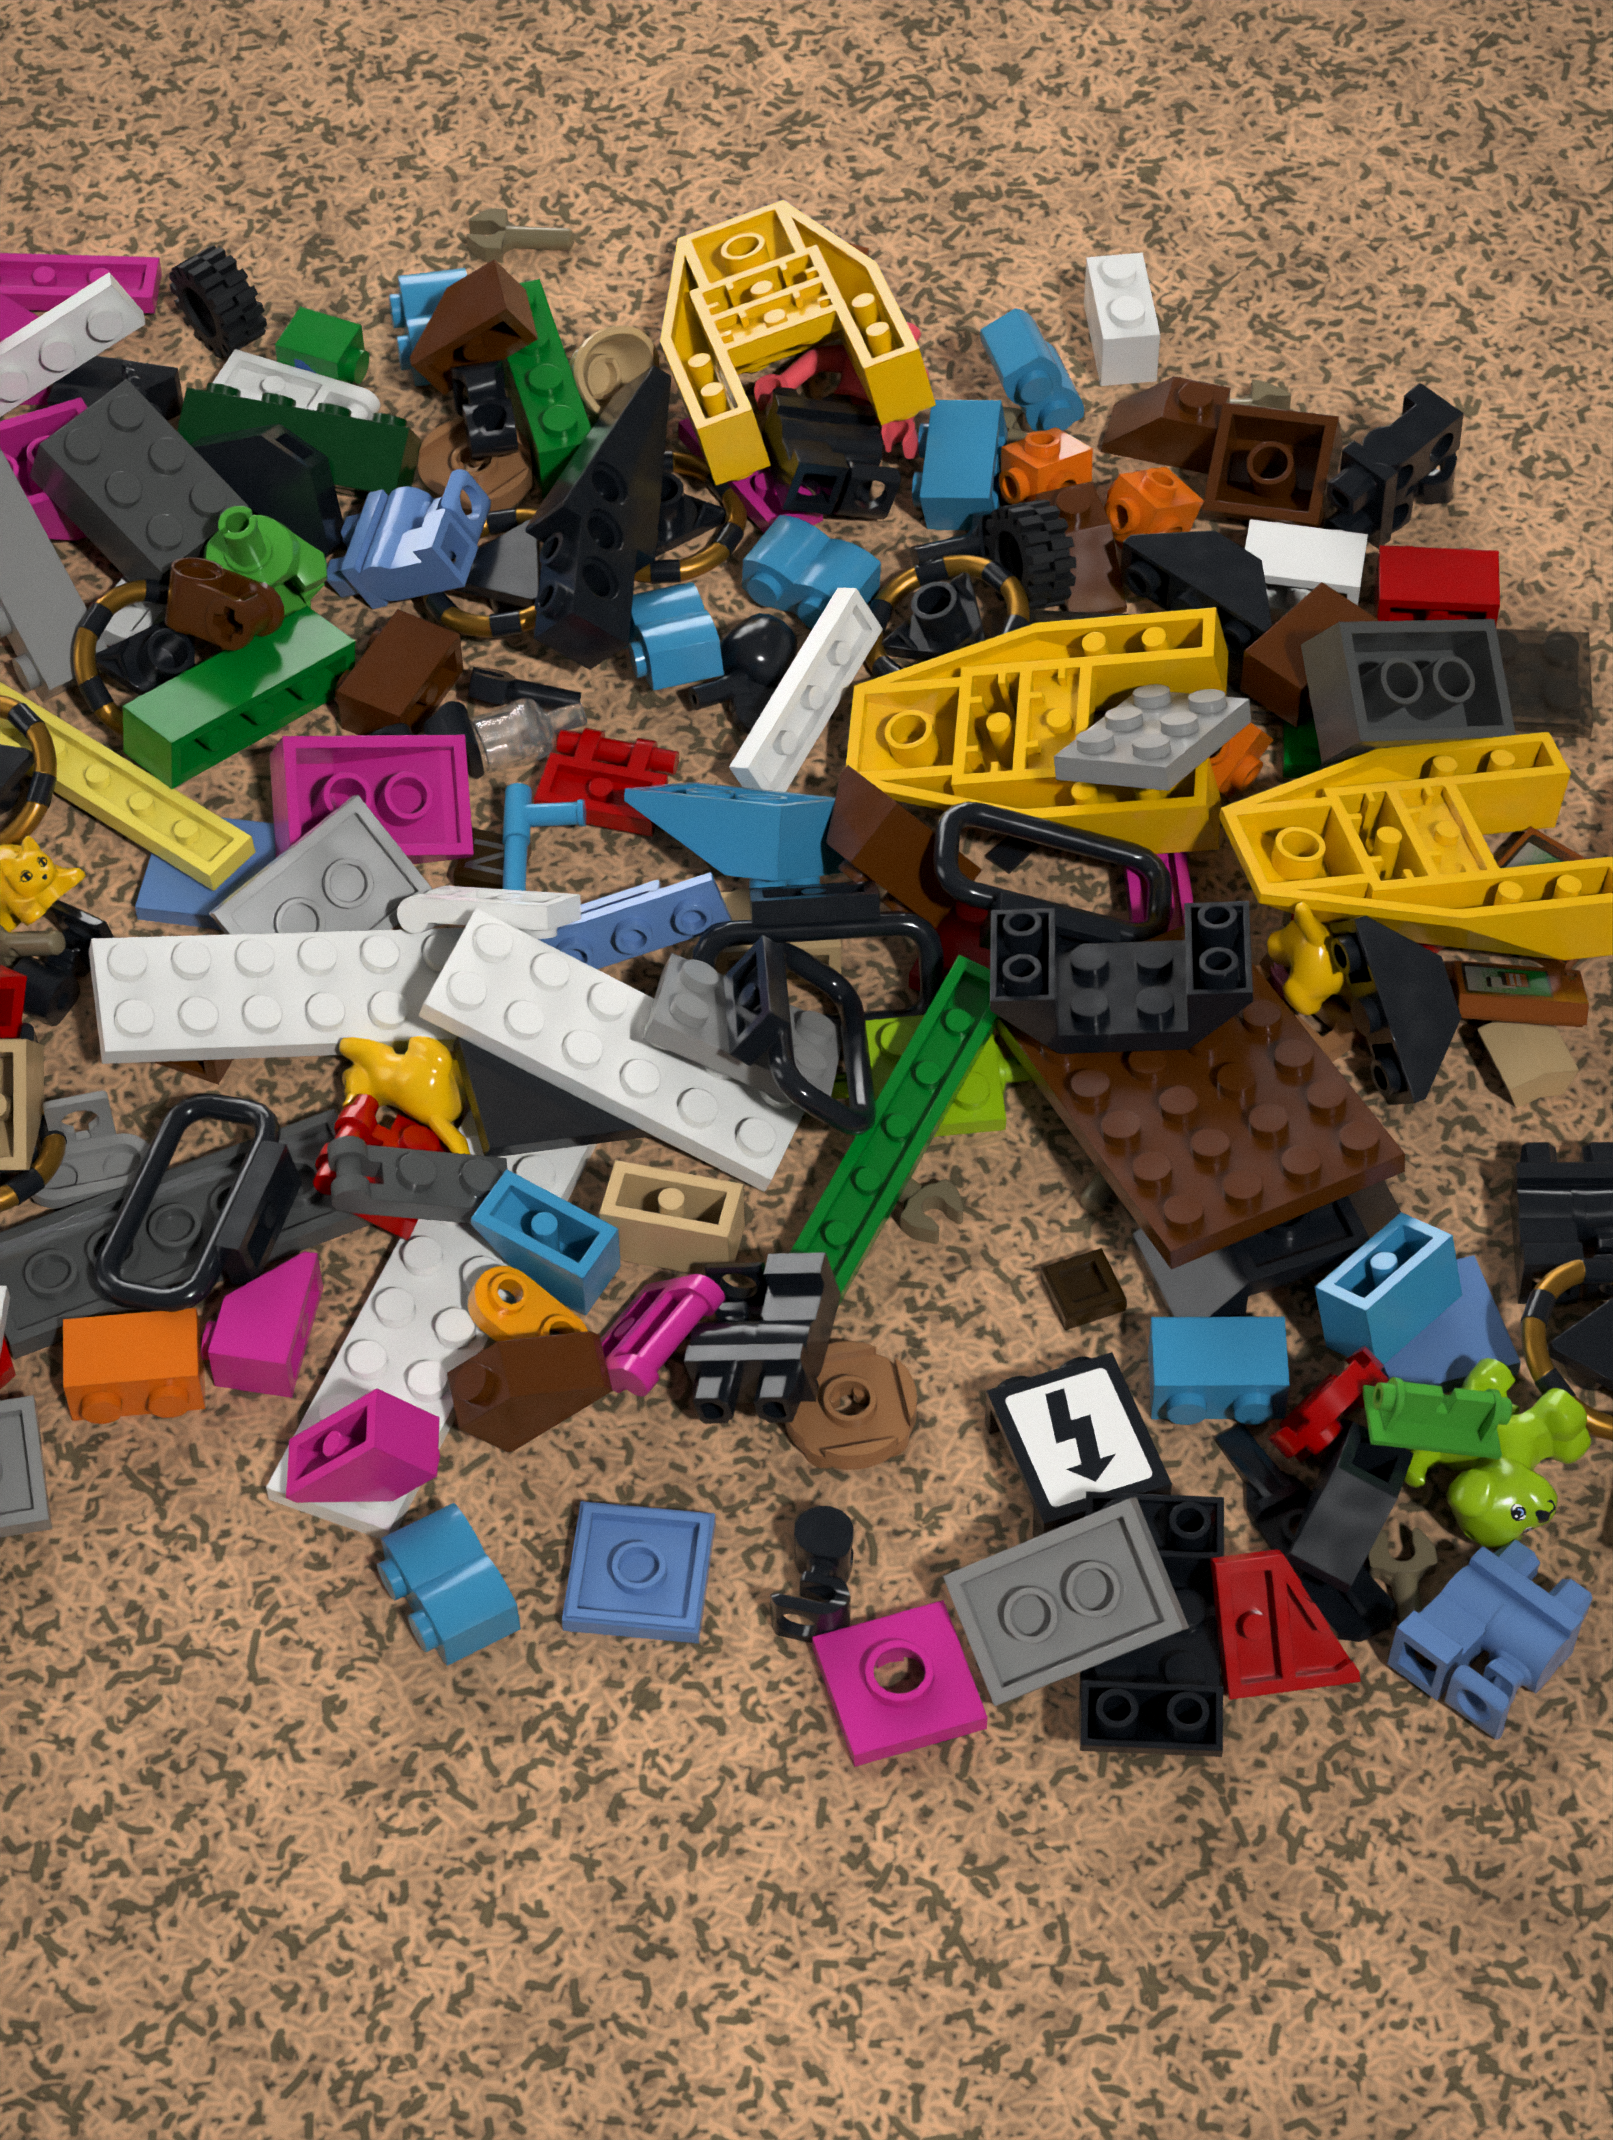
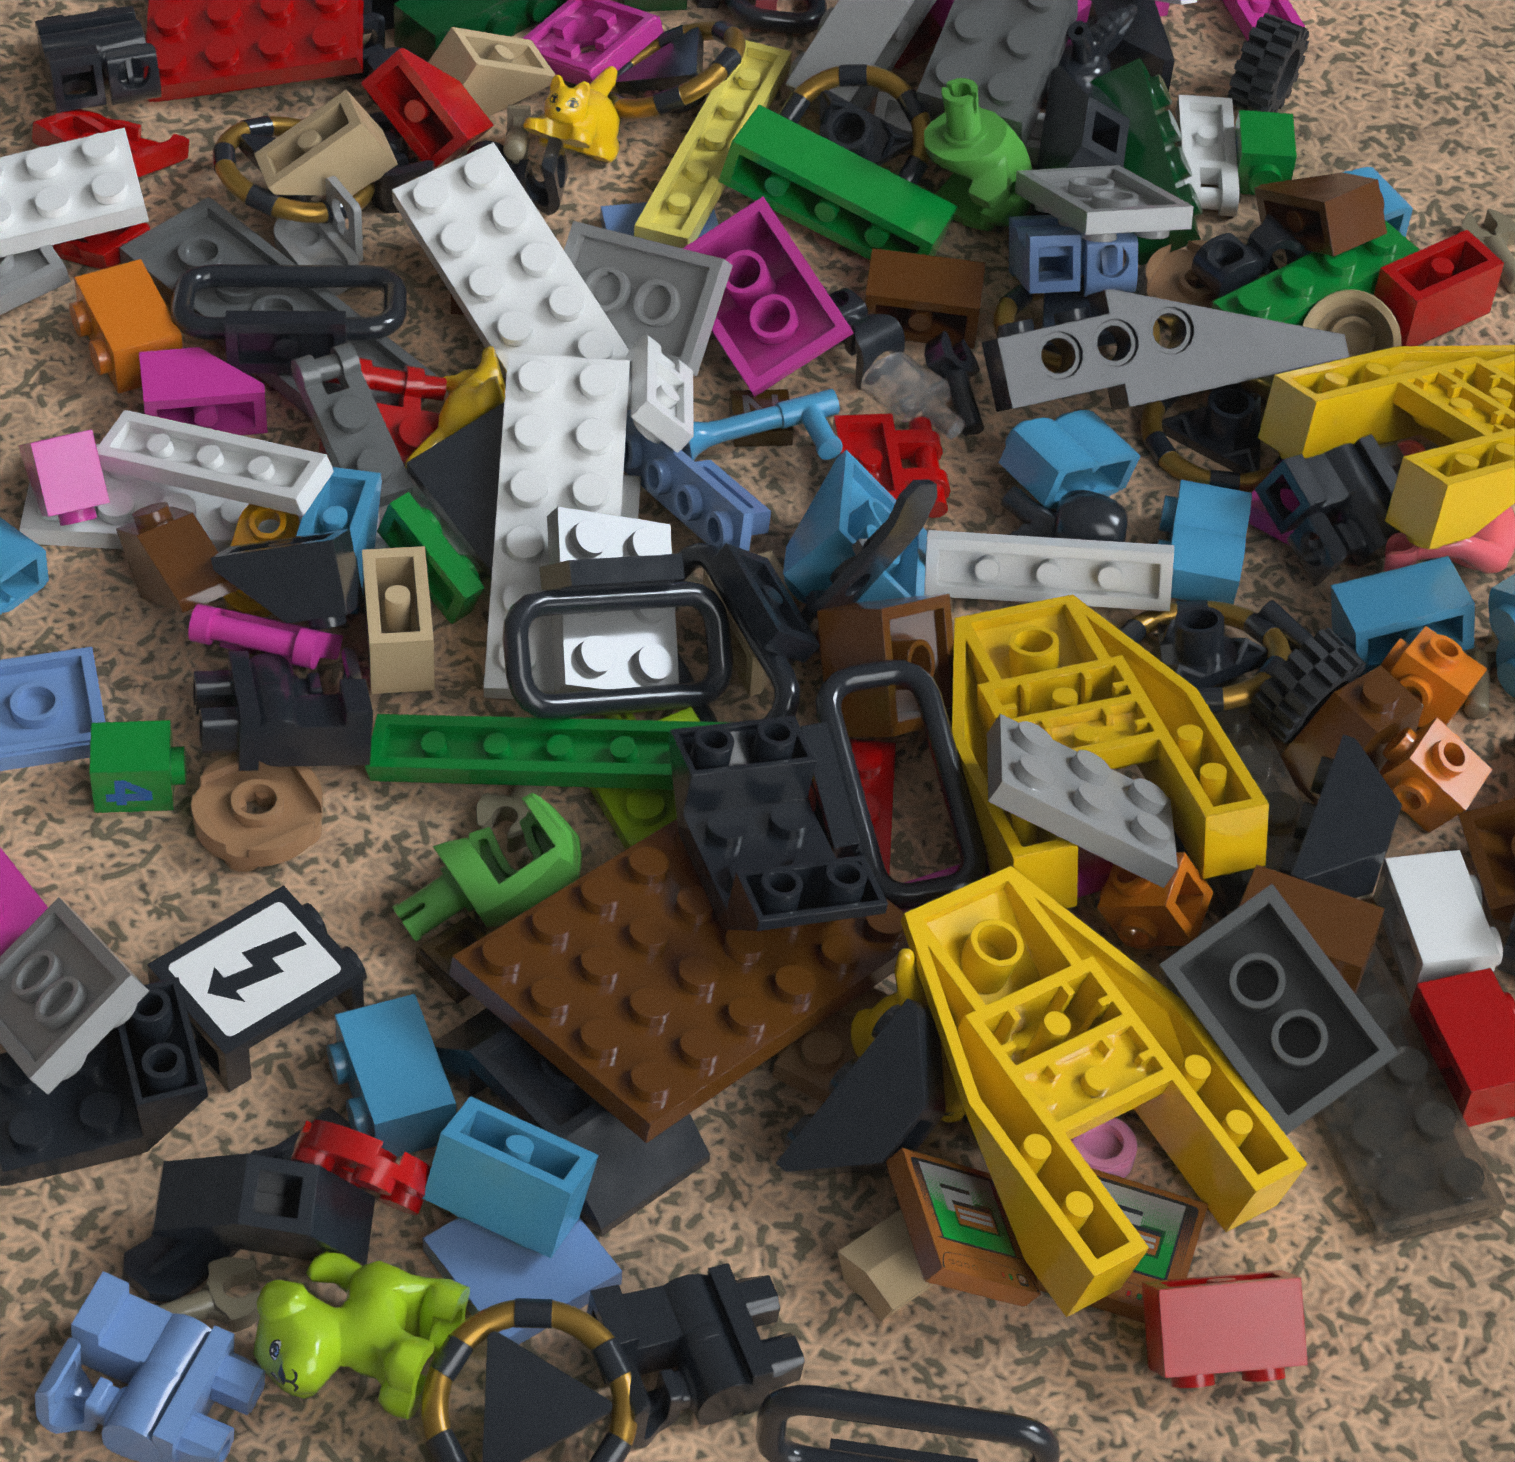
camera: 65 degrees right, 5 degrees down
(220, 604) = (900, 129): reddish brown piece -> none
(400, 477) = (1104, 202): none -> light grey plate
(426, 1307) = (214, 462): none -> white plate
(576, 284) = (1440, 287): none -> red brick
(584, 1171) = (451, 576): none -> green plate
(618, 1271) = (298, 576): none -> black slope
(765, 1494) = (135, 766): none -> green brick
(825, 1563) = (87, 814): black leg -> none
(827, 782) = (874, 553): none -> black piece
(1035, 1221) = (483, 880): none -> bright green piece
(1272, 1629) = (92, 1183): red wing -> none
(1427, 1420) = (341, 1232): bright green hinge -> none

